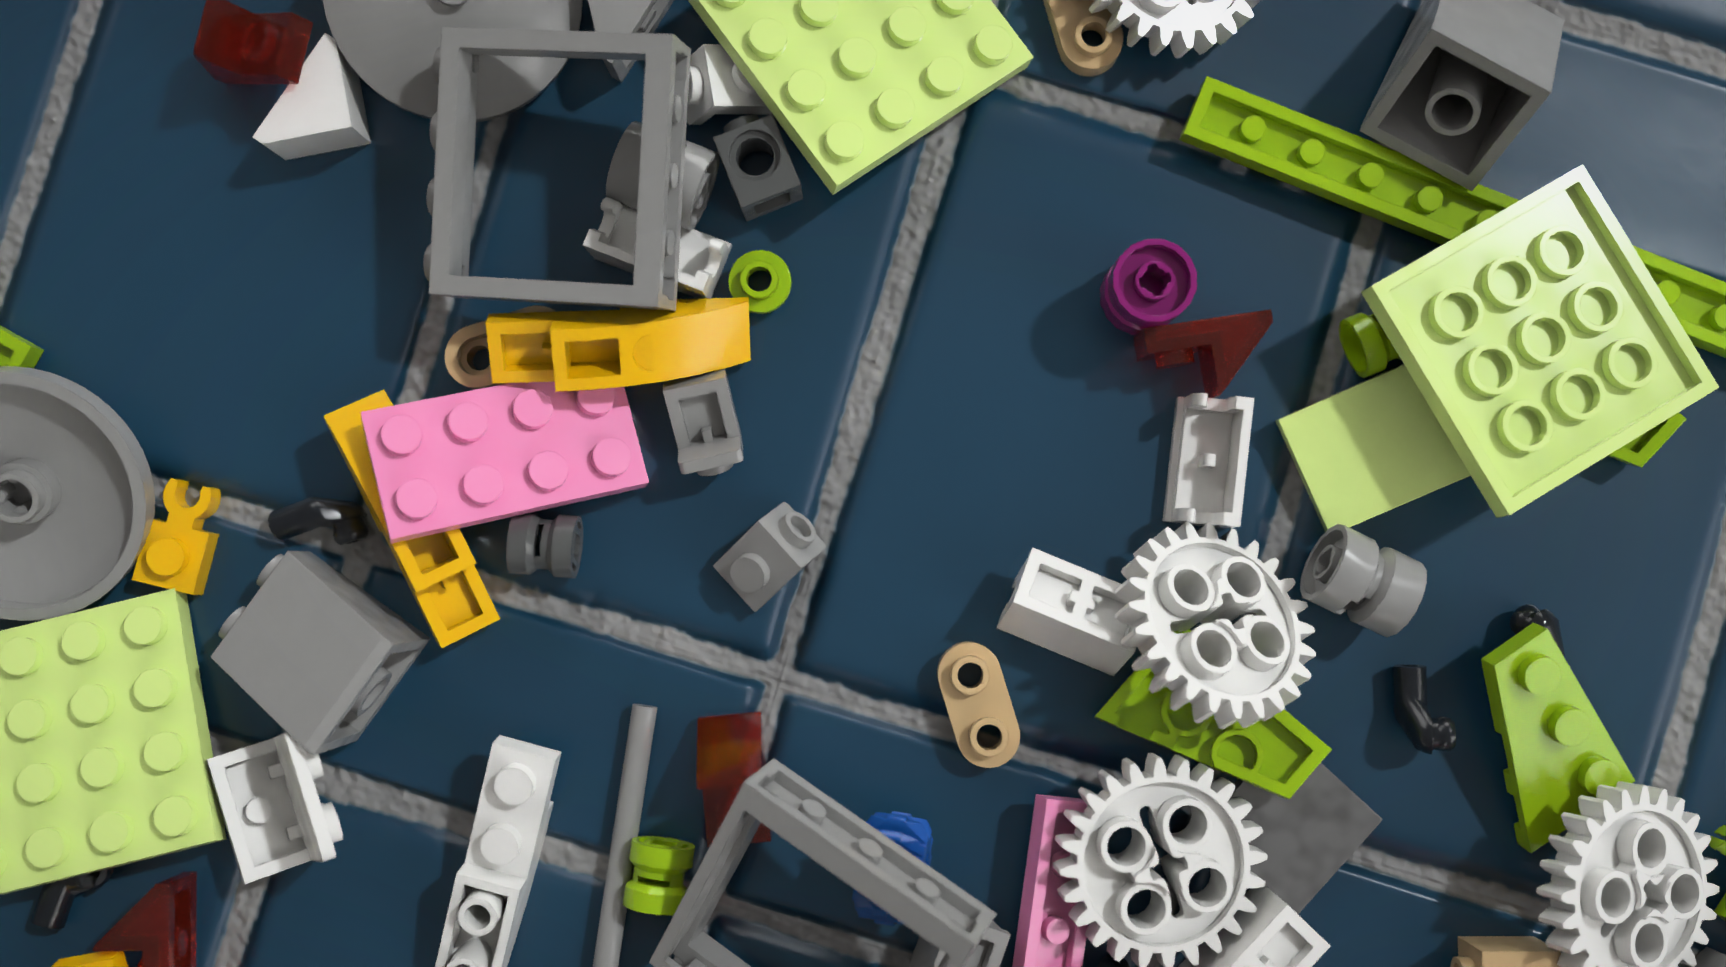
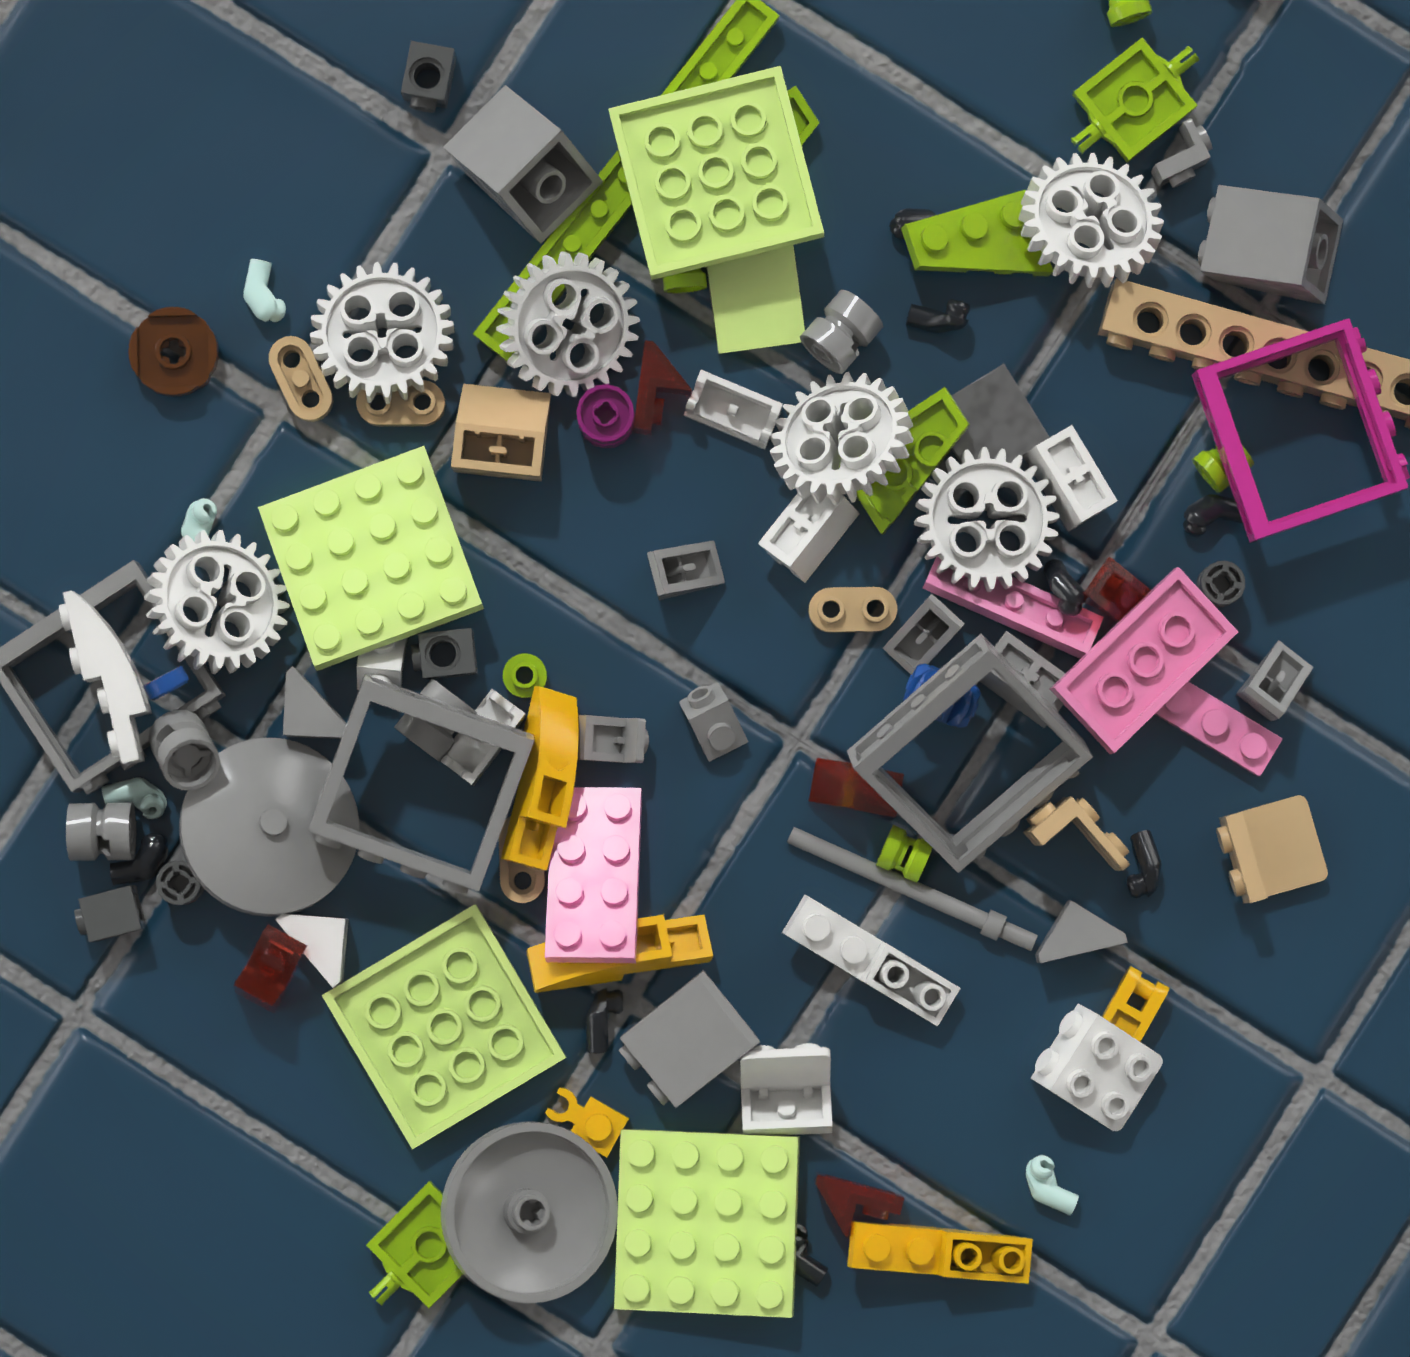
camera: 80 degrees left, 0 degrees up
(251, 309) = (444, 1026): none -> yellowish green plate
(545, 544) = (667, 860): dark grey wheel -> none
(967, 456) = (685, 569): none -> light grey slope
(973, 817) = (923, 634): none -> light grey slope
(1080, 151) = (501, 432): none -> tan slope
(1274, 140) = (534, 307): none -> white gear

